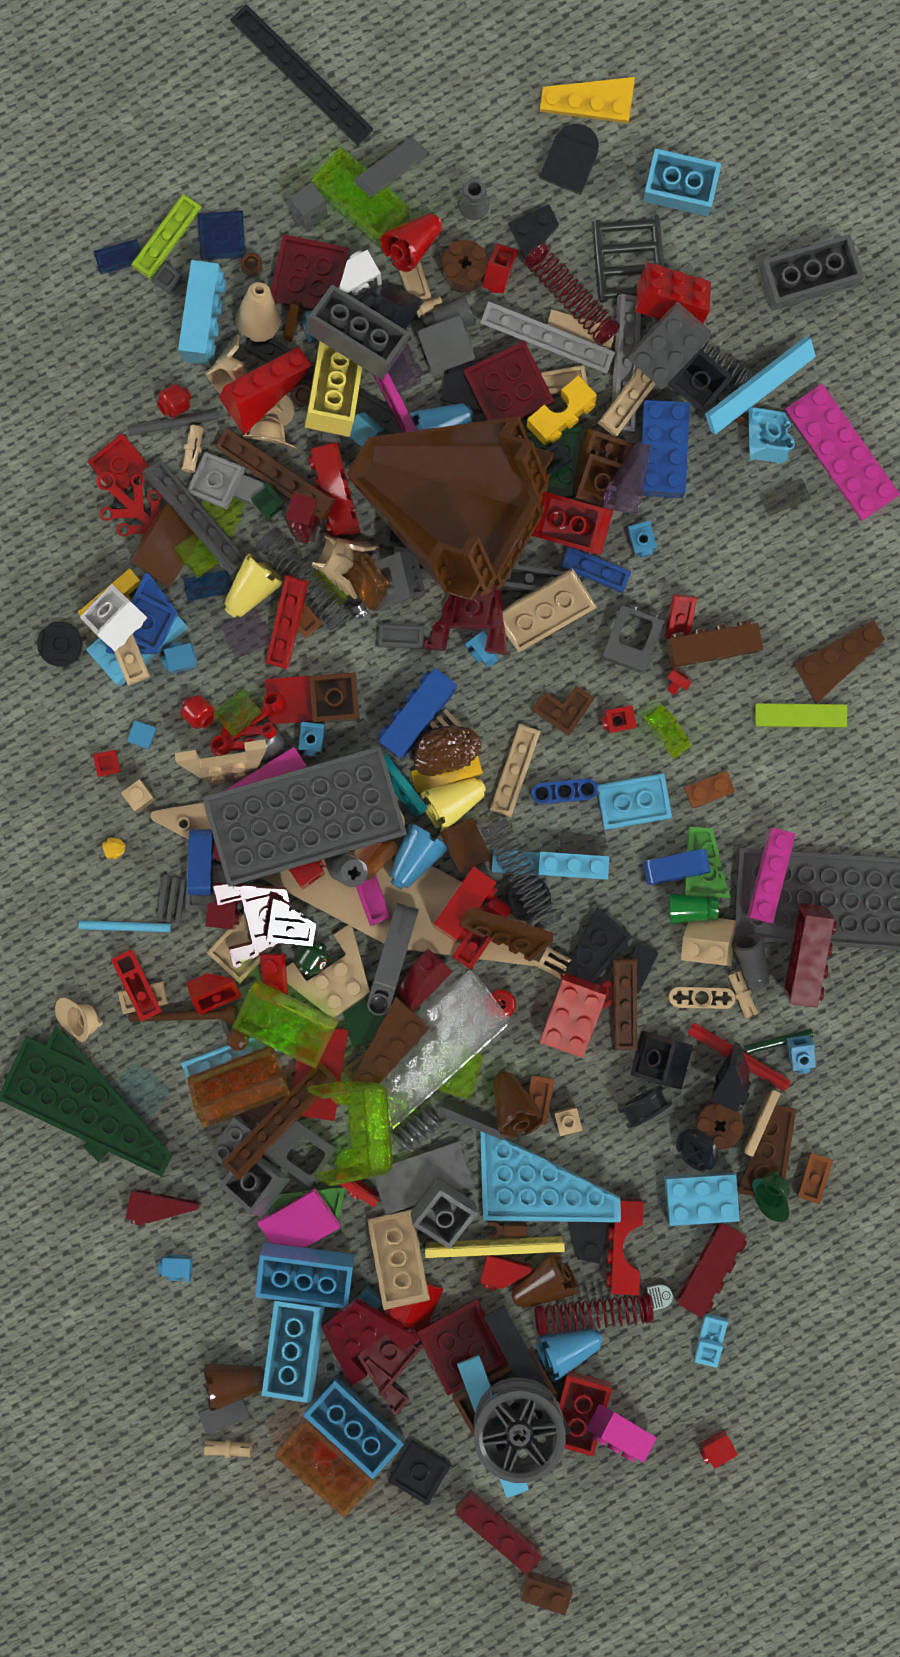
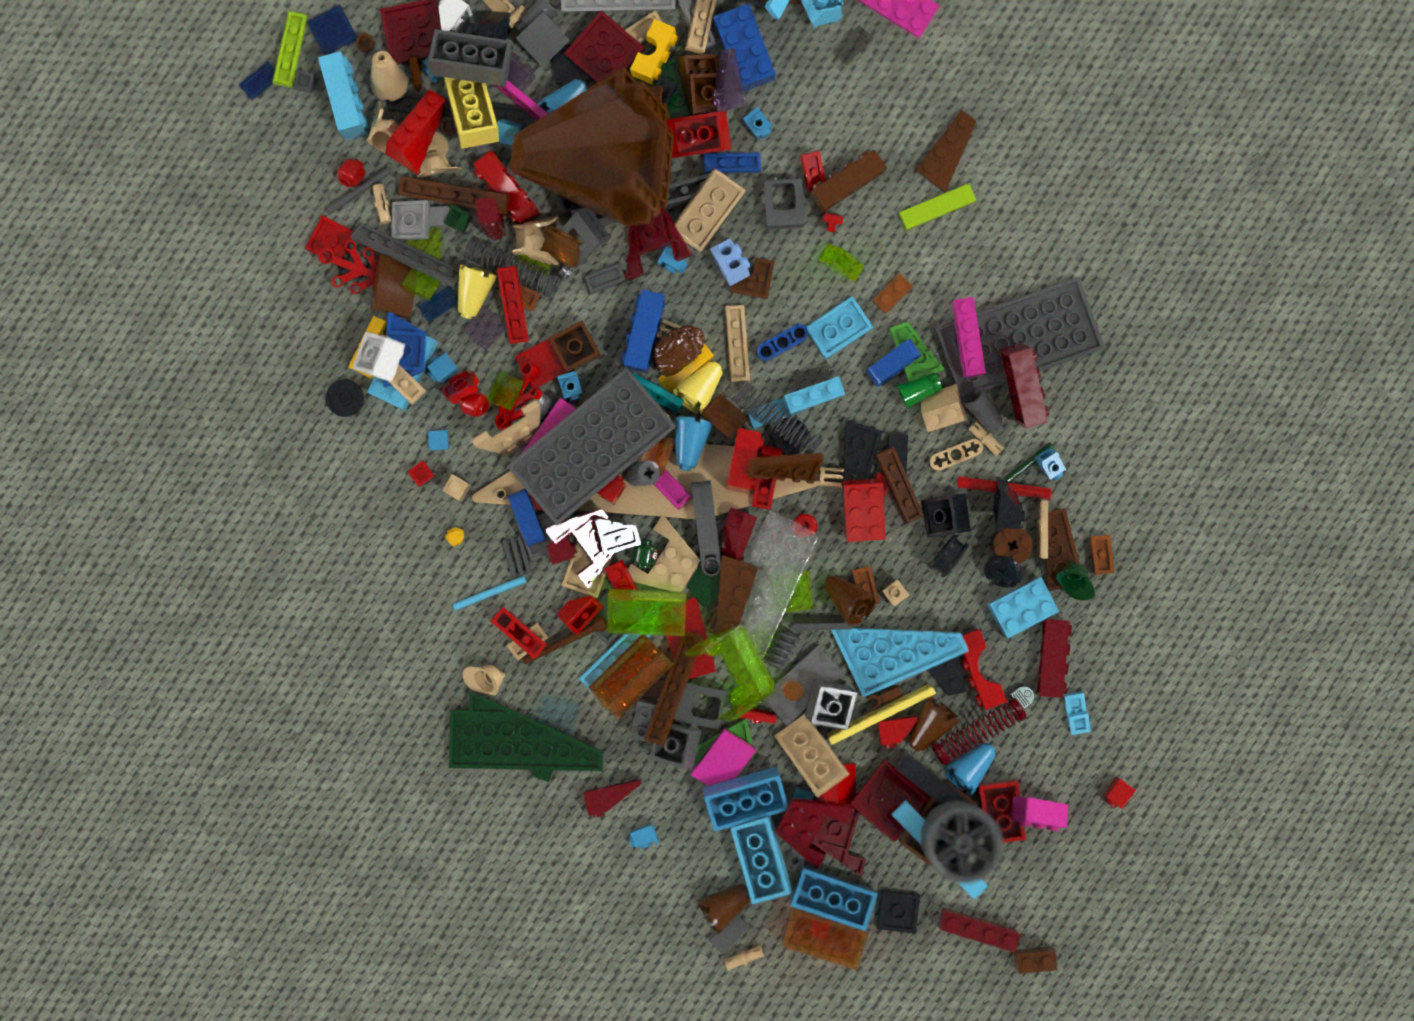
camera: 25 degrees left, 0 degrees up
(191, 687) = (460, 386): none -> red plate
(237, 1040) = (614, 641): reddish brown tile -> none
(409, 1180) = (793, 691): none -> clear orange tile
(545, 678) = (730, 261): none -> light blue brick
(627, 716) = (803, 263): red brick -> none

